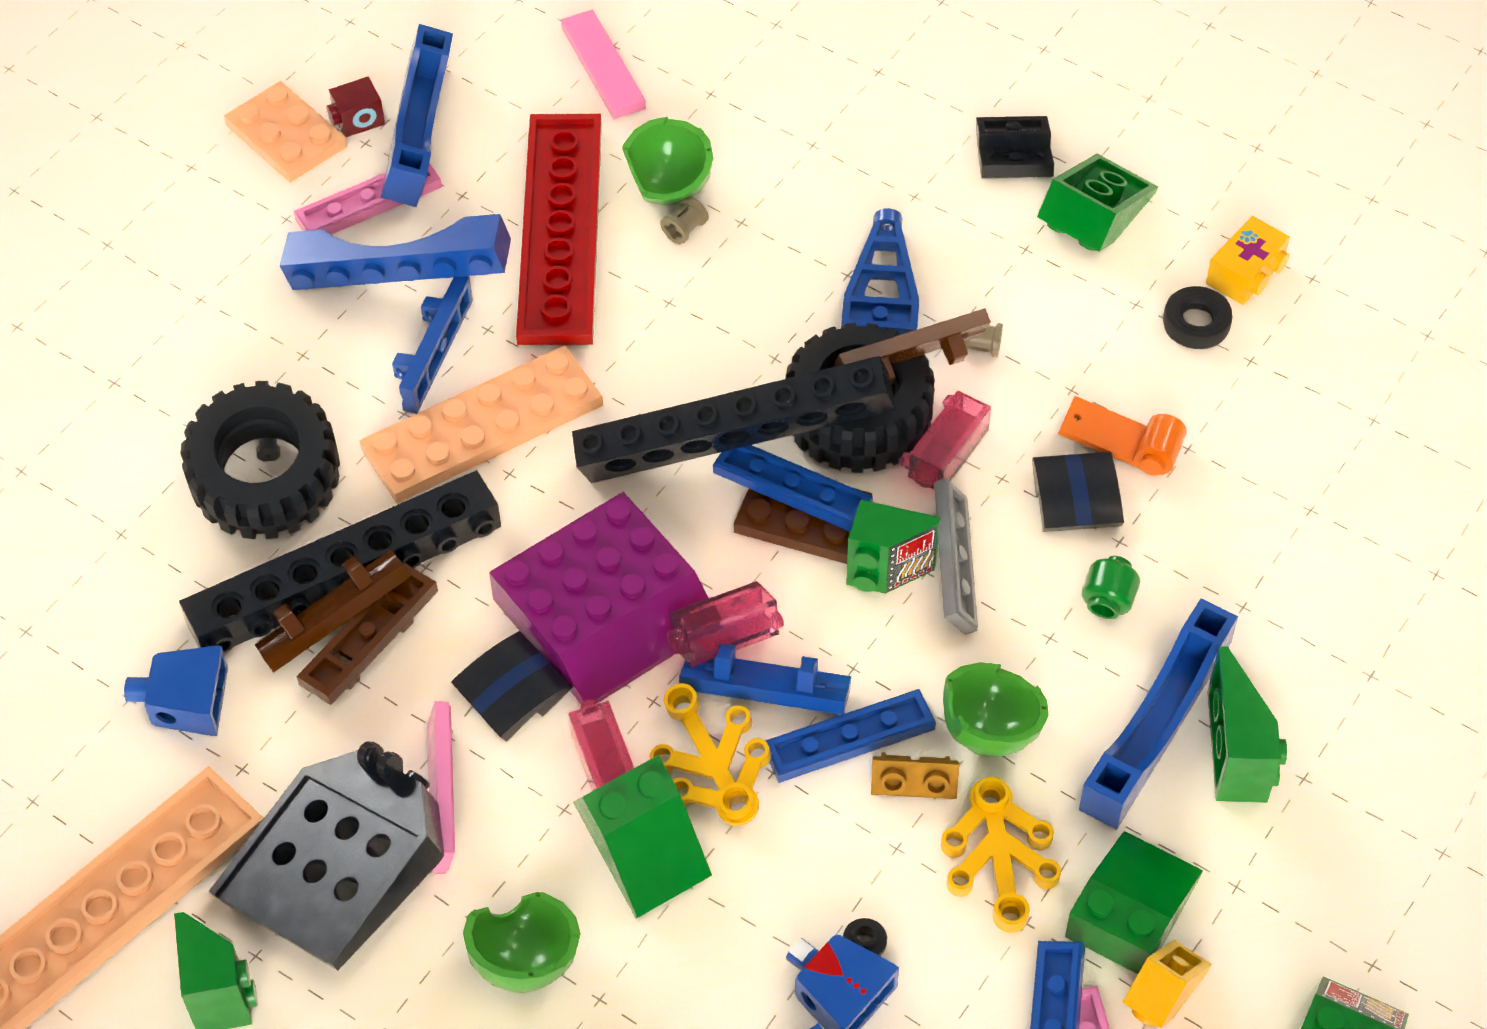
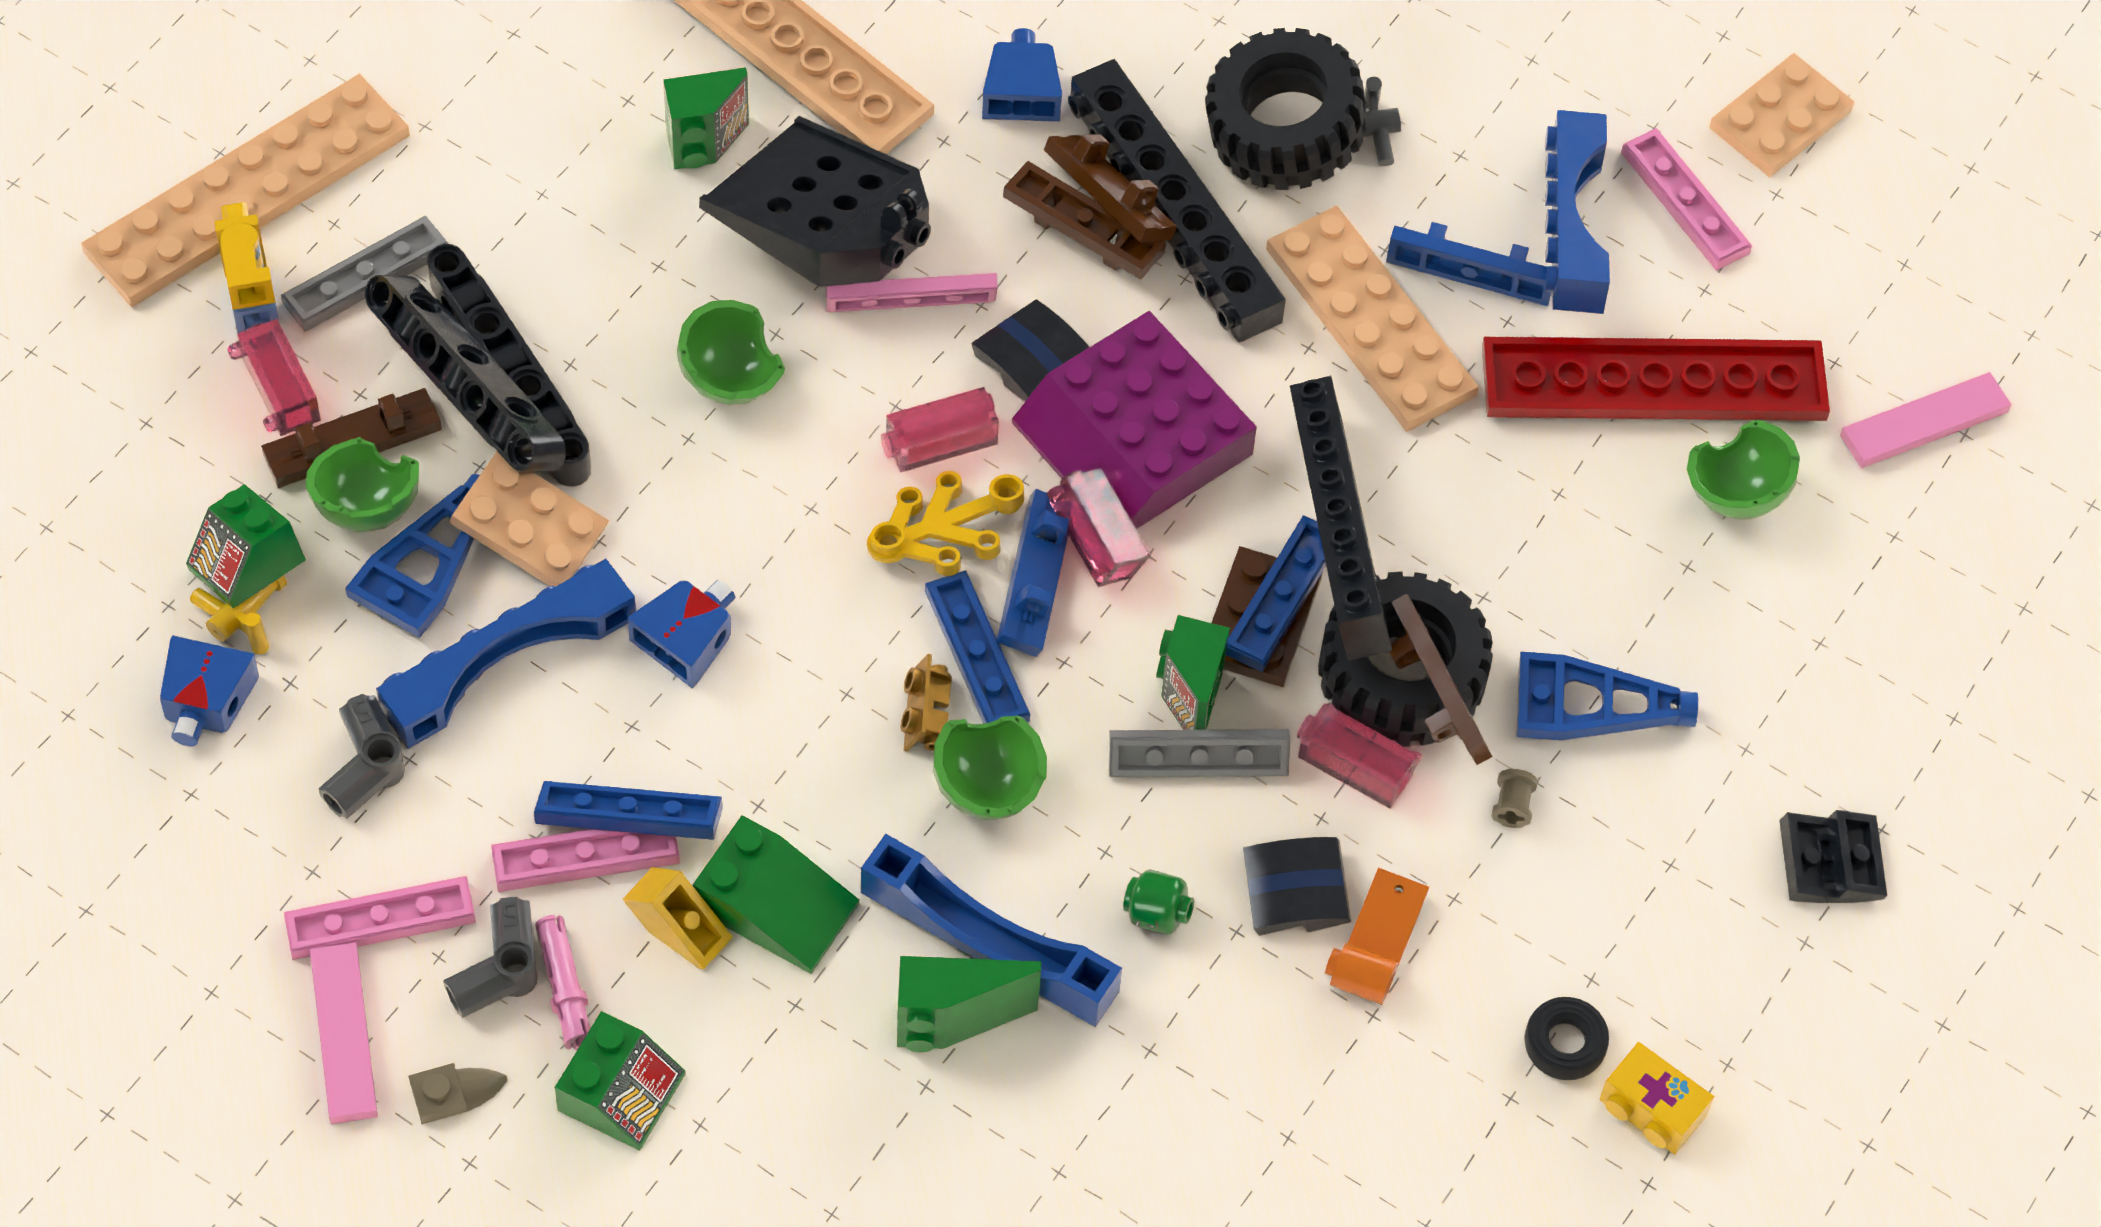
camera: 85 degrees right, 5 degrees up
(355, 107) = (1817, 173): dark red brick -> none
(415, 117) = (1733, 218): blue arch -> none
(644, 836) = (841, 449): green slope -> none
(684, 220) = (1672, 499): dark tan bush -> none
(870, 927) = (737, 665): black plate -> none
(1000, 847) = (838, 780): yellow plant -> none
(1095, 201) = (1744, 937): green slope -> none

